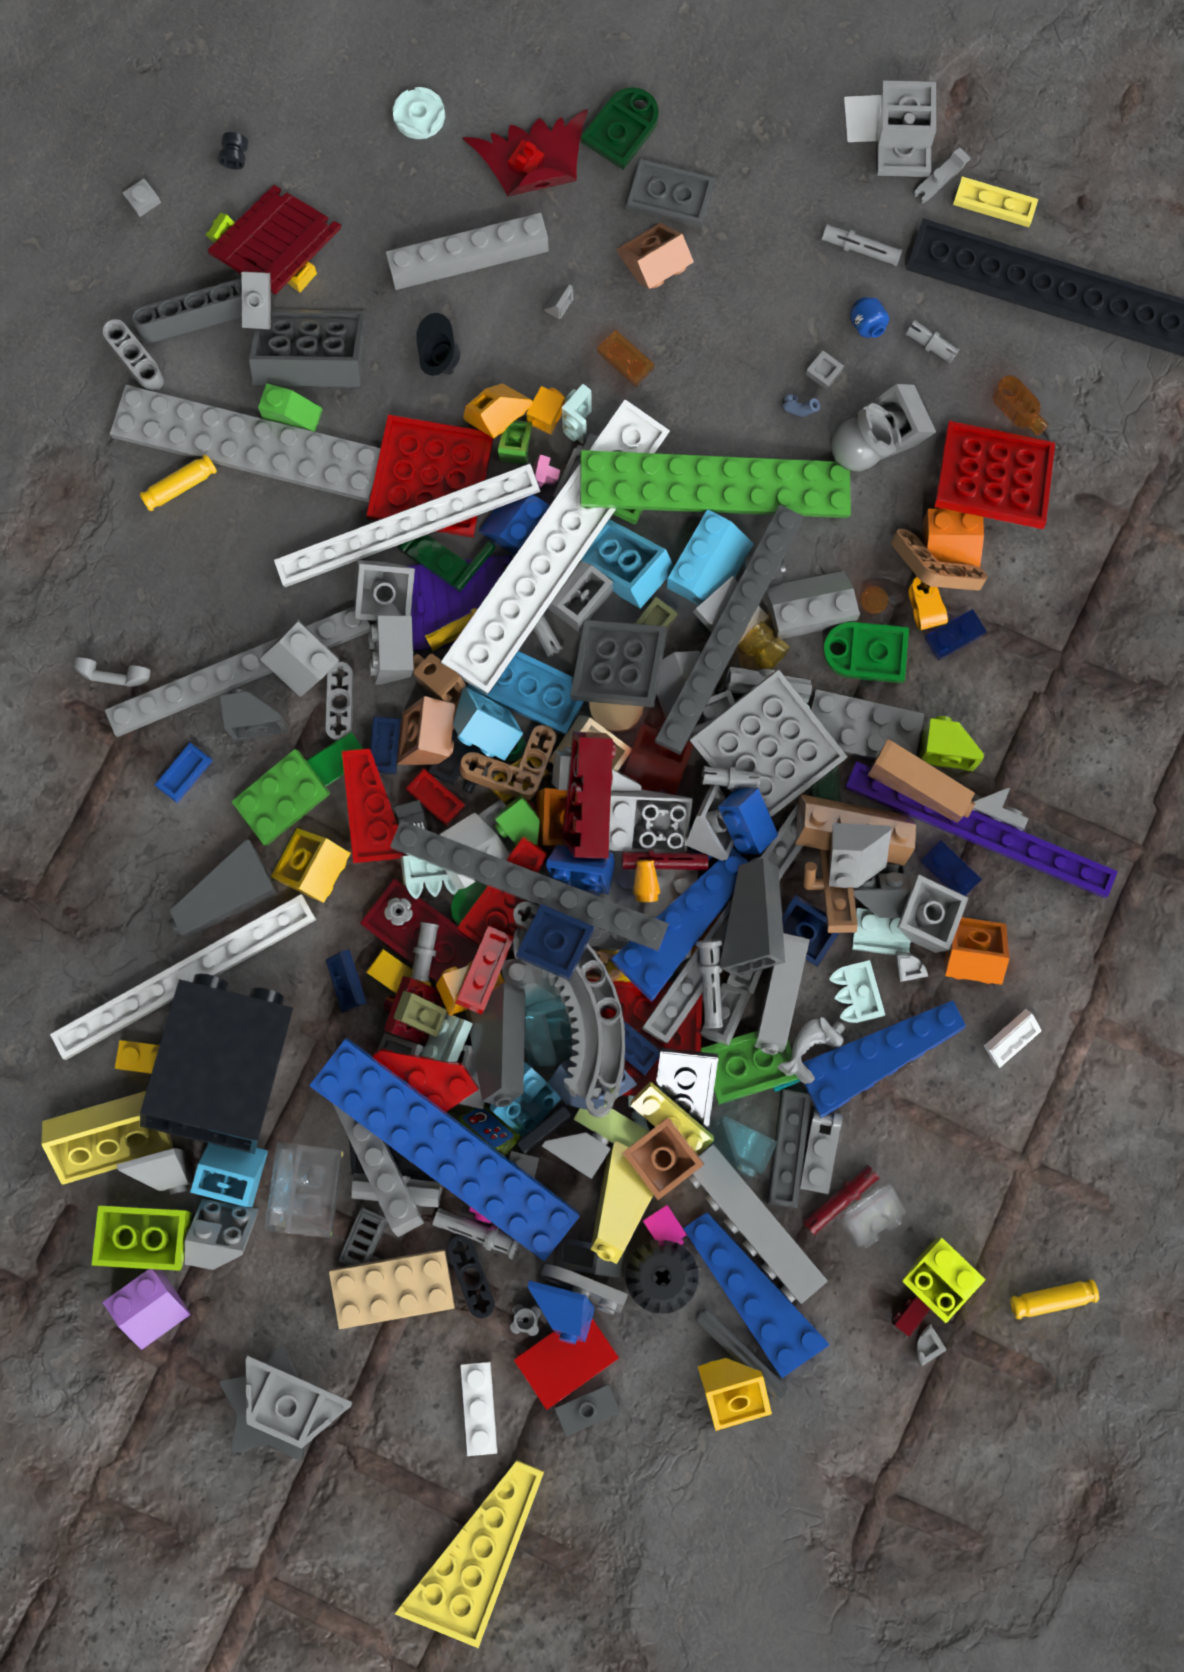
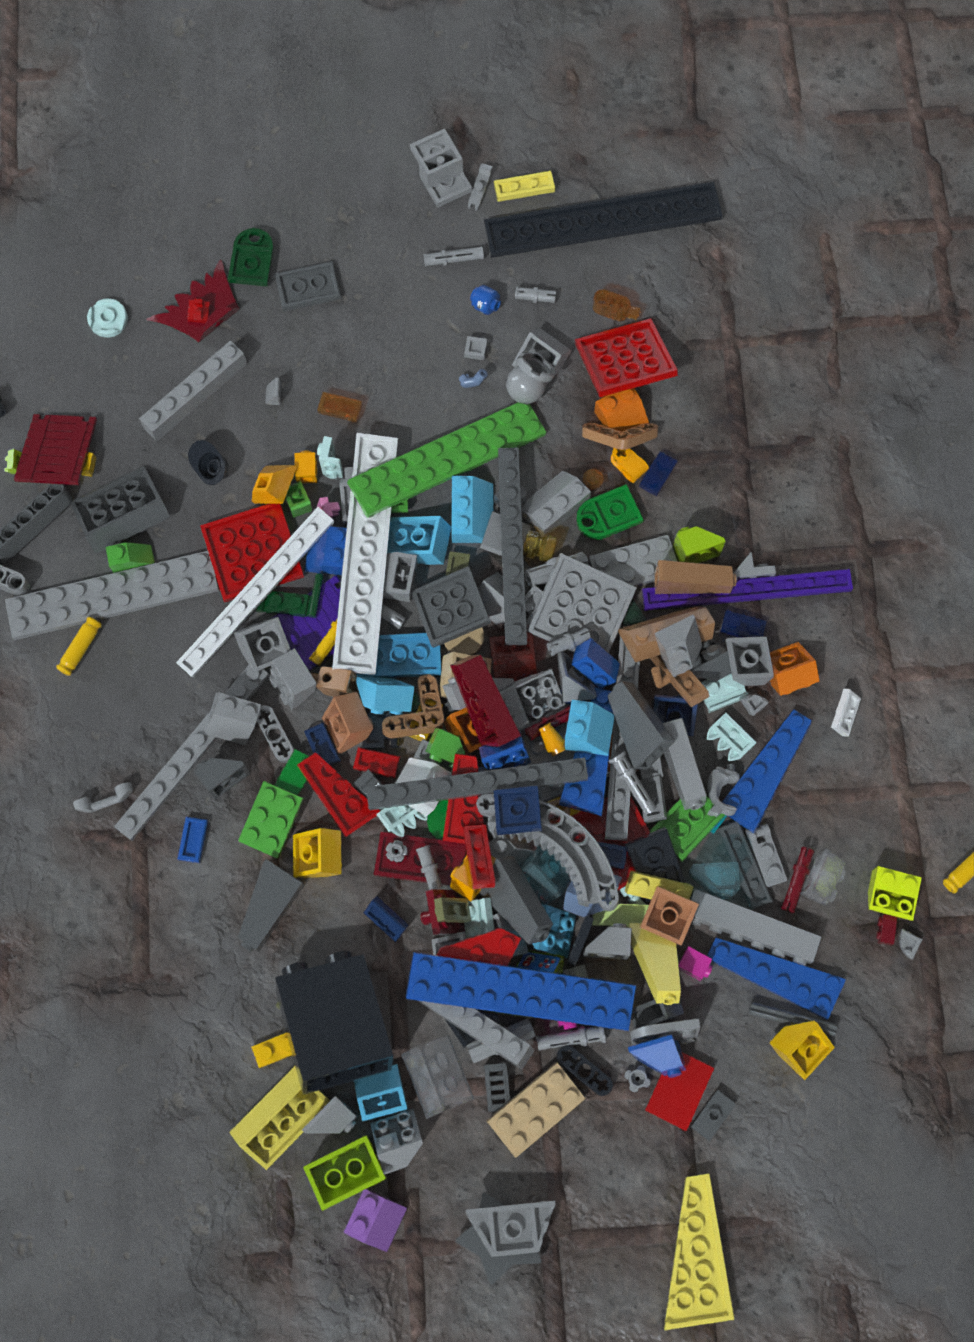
camera: 30 degrees left, 5 degrees down
(162, 987) = (265, 987): white plate -> none
(256, 300) = (67, 495): light grey plate -> none
(390, 971) = (412, 896): yellow slope -> none
(479, 1408) = (640, 1157): white plate -> none
(641, 1276) = (700, 1004): black wheel -> none
(656, 255) = (322, 330): nougat slope -> none
(694, 892) = (589, 728): none -> medium azure slope
(862, 117) = (407, 175): white sticker -> none

